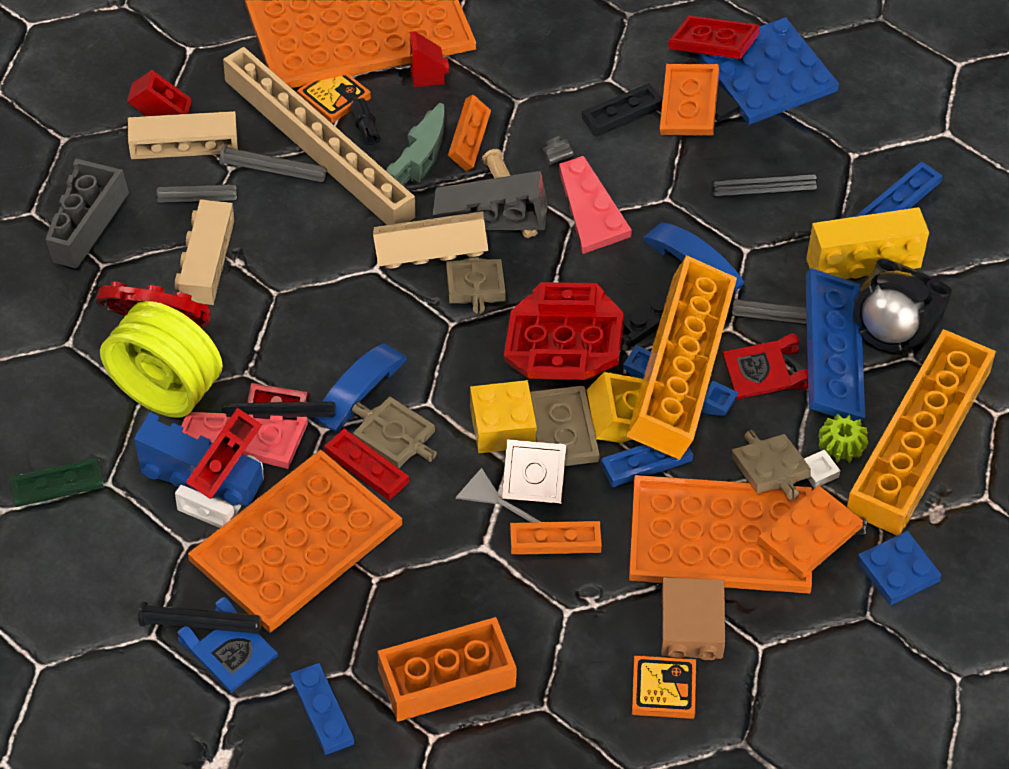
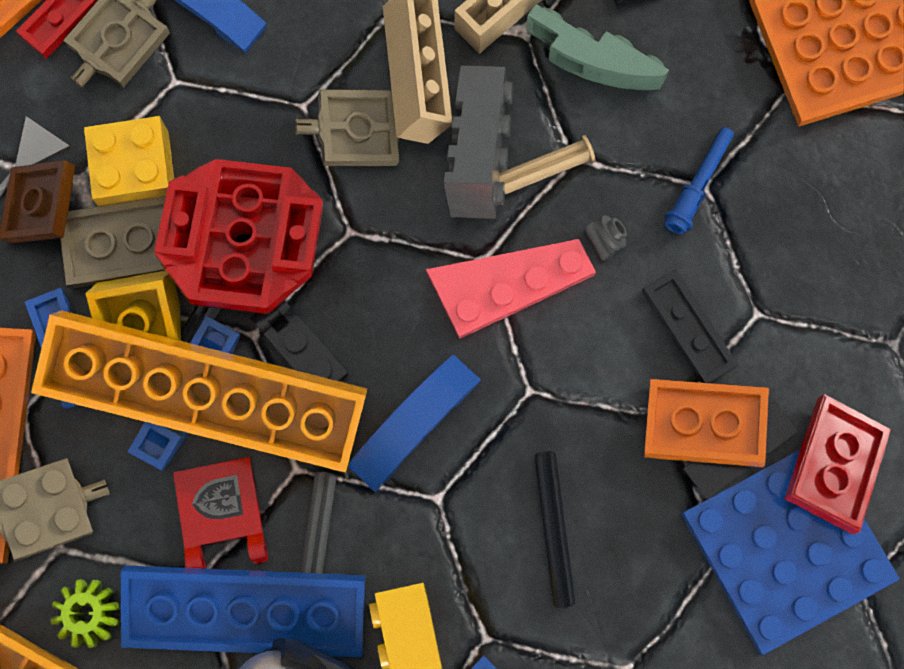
camera: 90 degrees right, 25 degrees up
(426, 61) = (752, 50): red slope -> none
(469, 133) = (629, 117): orange plate -> none
(541, 109) = (681, 216): none -> blue pin
(822, 469) = (40, 577): white plate -> none

